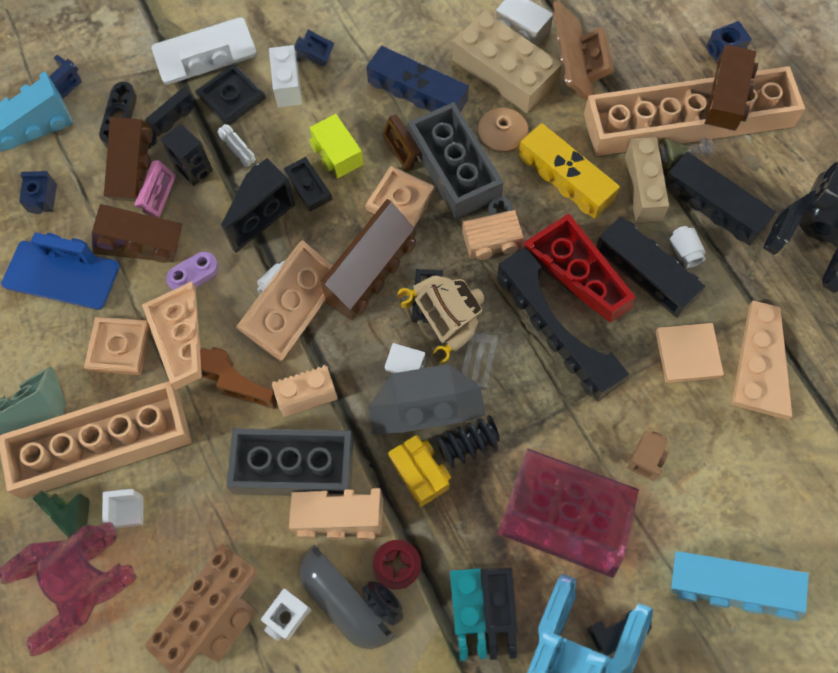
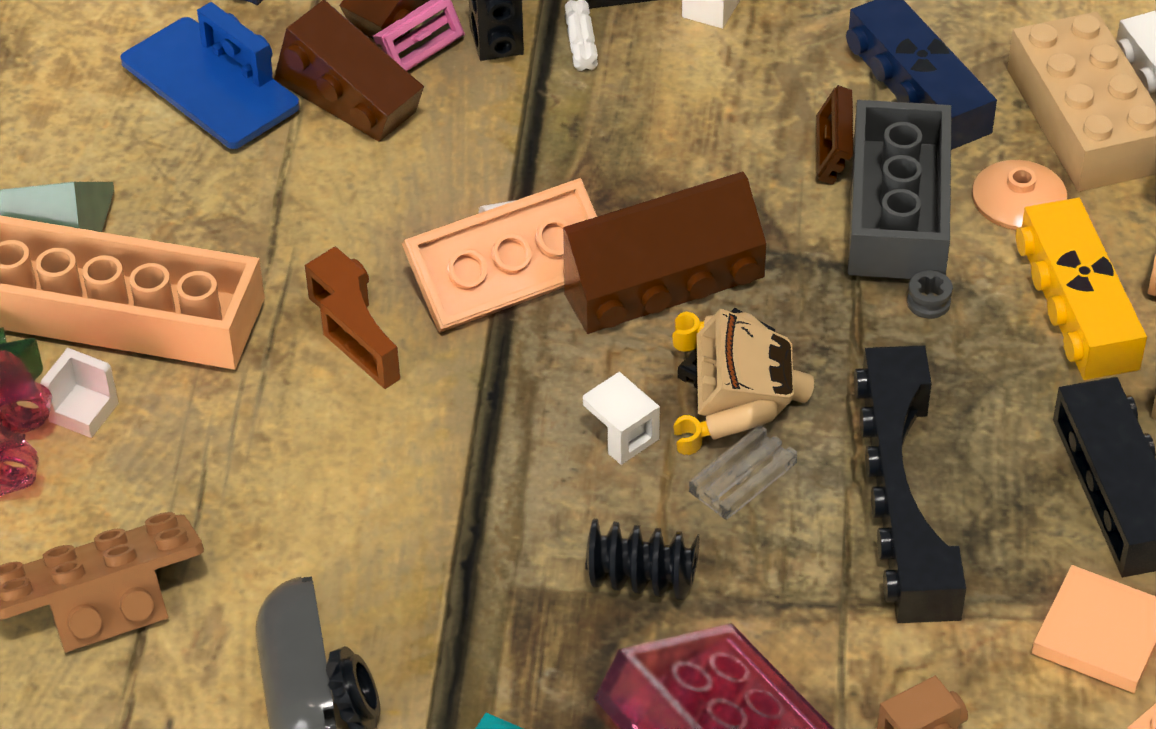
camera: 30 degrees right, 20 degrees down
(117, 346) = (222, 203): light nougat tile -> none
(176, 333) = (313, 216): light nougat wing -> none
(192, 271) = (395, 163): lavender plate -> none
(258, 204) = (547, 111): black slope -> none
(284, 603) = (202, 636): white brick -> none
(289, 461) = (356, 451): dark grey brick -> none
(304, 391) = (443, 376): light nougat brick -> none
(307, 184) = (650, 126): black plate -> none
(336, 146) = (729, 96): neon yellow brick -> none
(336, 514) = (377, 550): light nougat wedge -> none
(386, 554) = (412, 647): dark red gear -> none
(405, 191) = (794, 209): light nougat tile -> none
(419, 470) = (537, 561): yellow brick -> none
(425, 400) = (617, 472): dark grey wedge -> none
(492, 235) = (887, 313): light nougat brick -> none
(581, 268) = (994, 411): red wedge -> none

